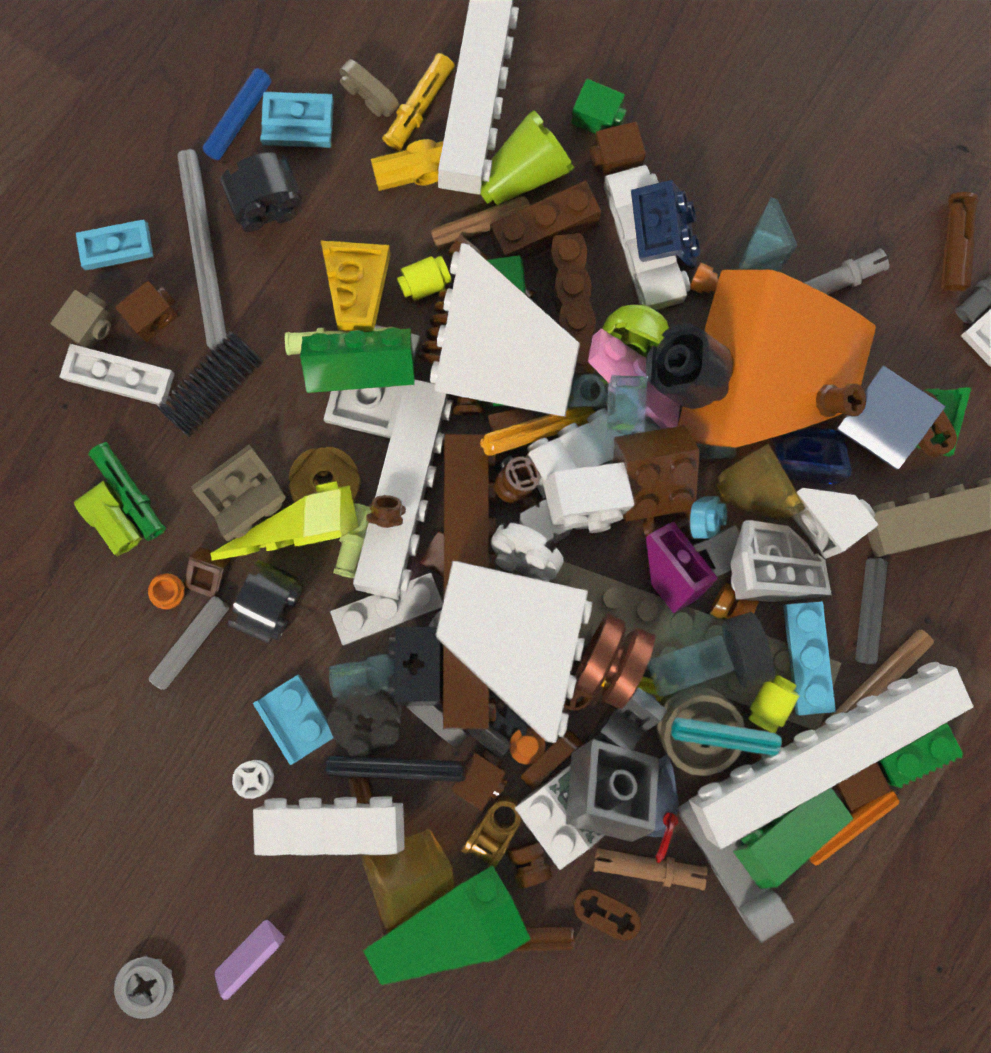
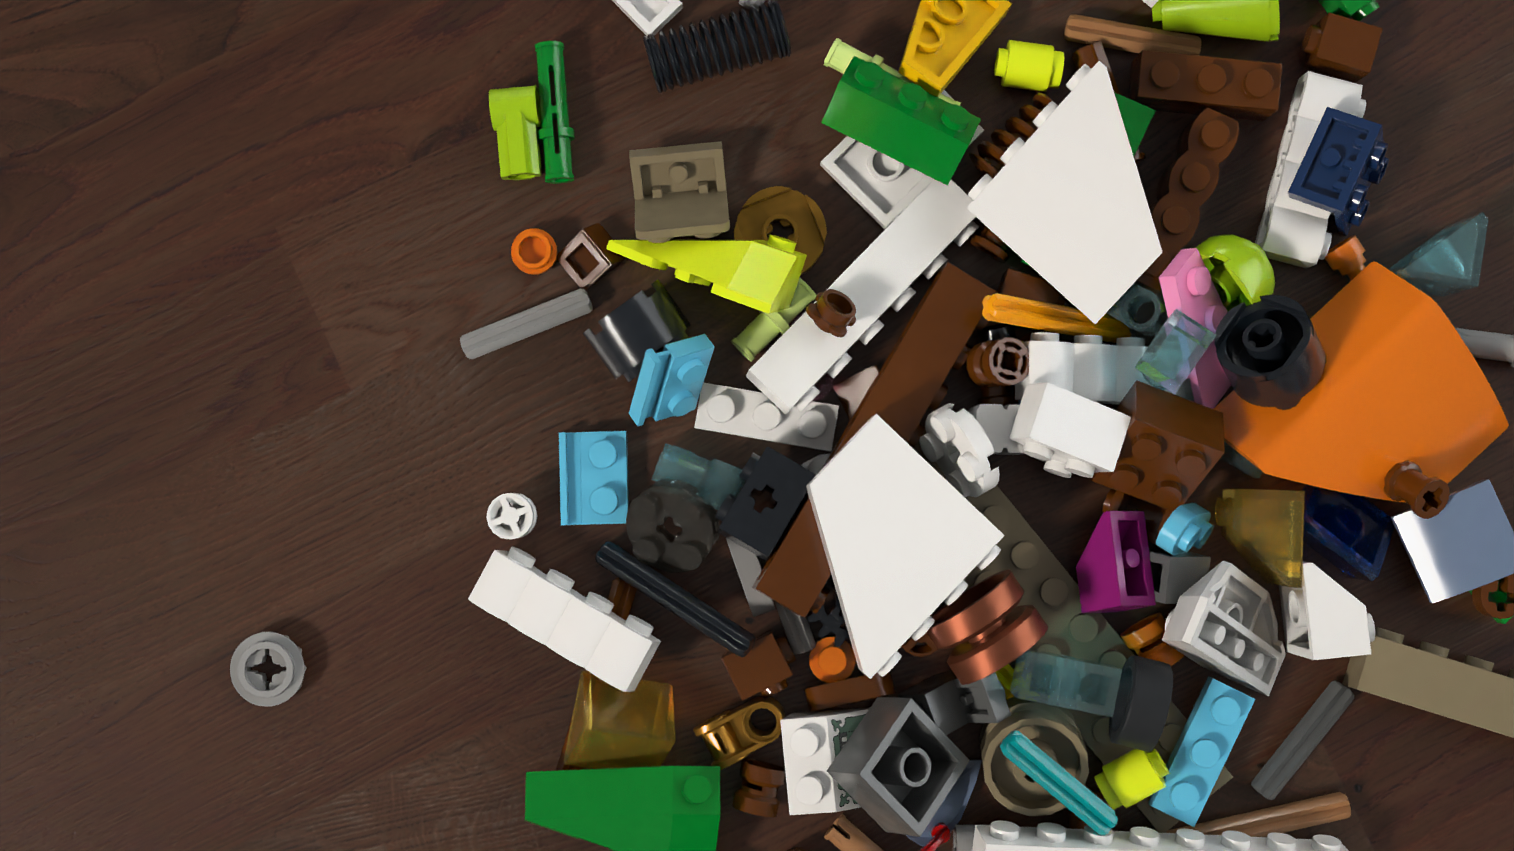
camera: 30 degrees right, 5 degrees up
(247, 958) = (396, 705): lavender slope -> none
(305, 621) = (671, 379): none -> medium azure plate

